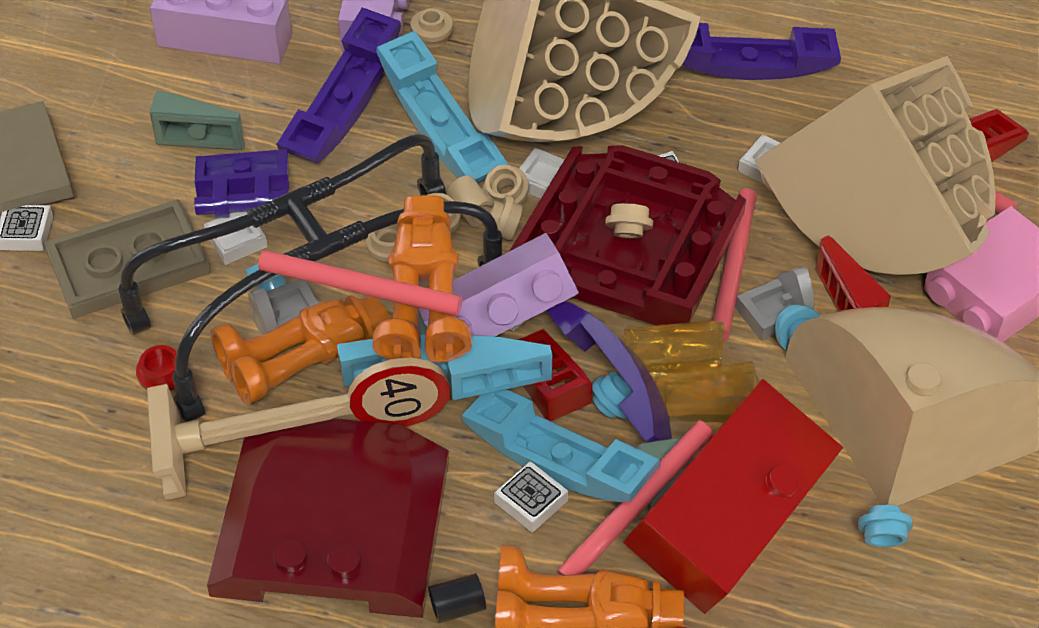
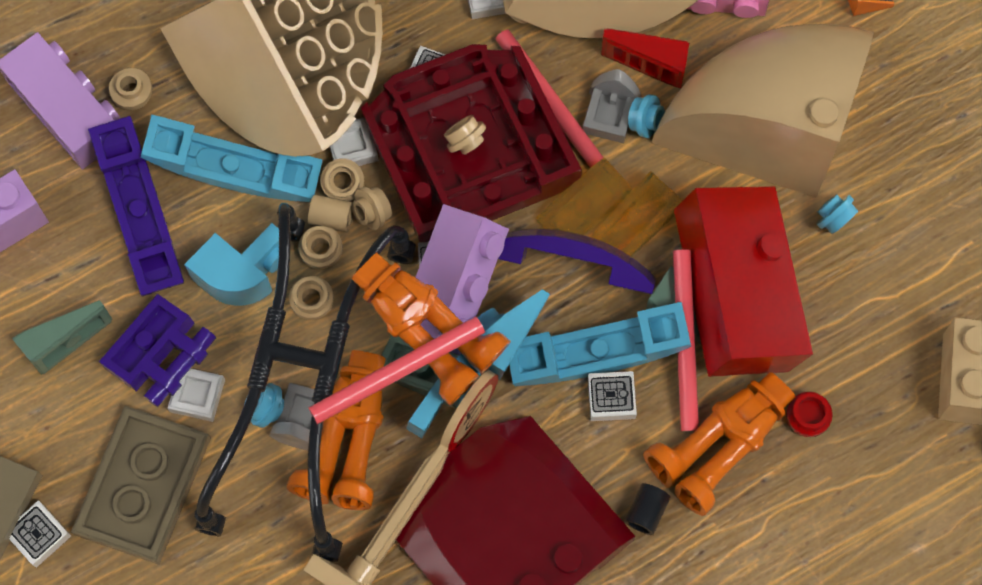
camera: 45 degrees left, 20 degrees up
(156, 367) = (276, 543): red plate -> none
(381, 187) = (235, 276): none -> medium azure brick
(567, 397) = (557, 288): red slope -> none
(610, 393) = (588, 277): medium azure plate -> none

